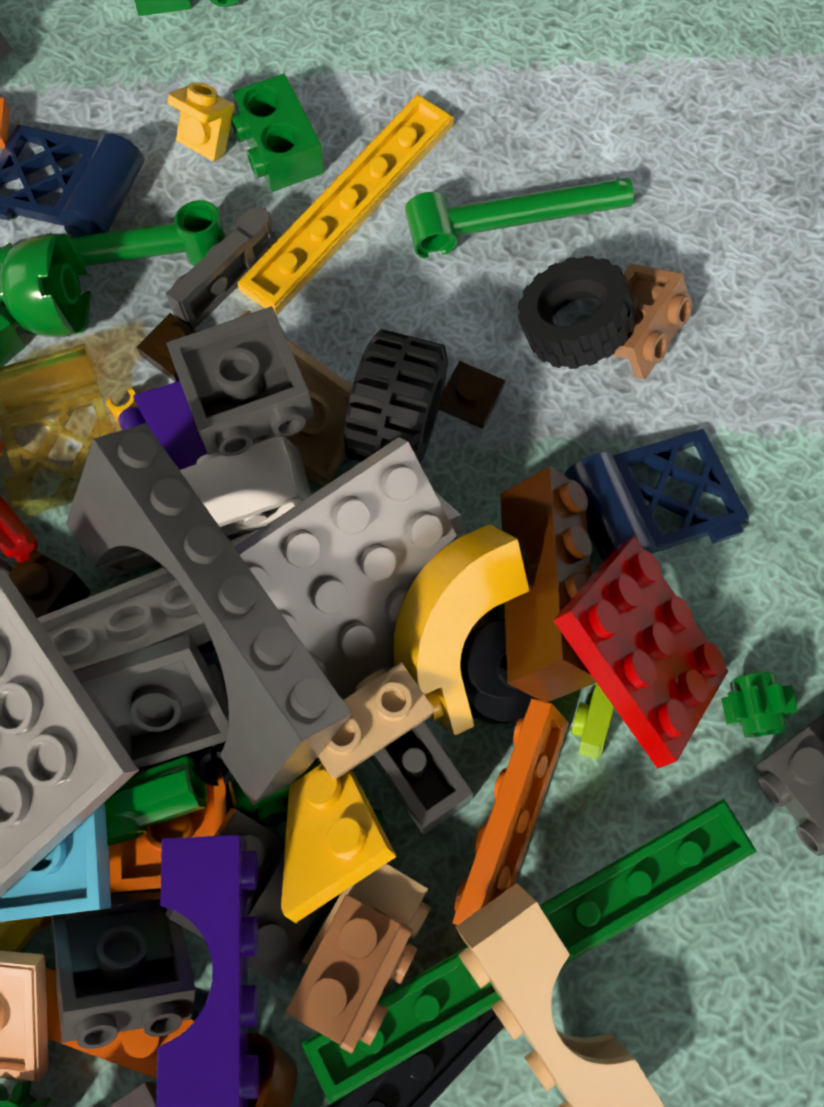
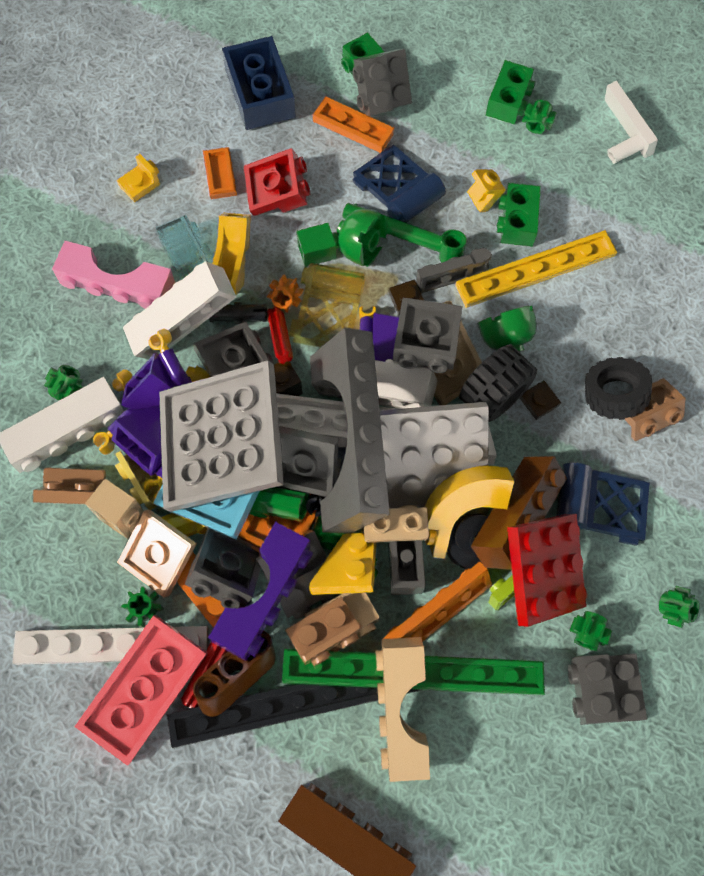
camera: 30 degrees right, 0 degrees up
(365, 303) = (510, 327): none -> green cylinder
(436, 225) = (574, 304): green piece -> none

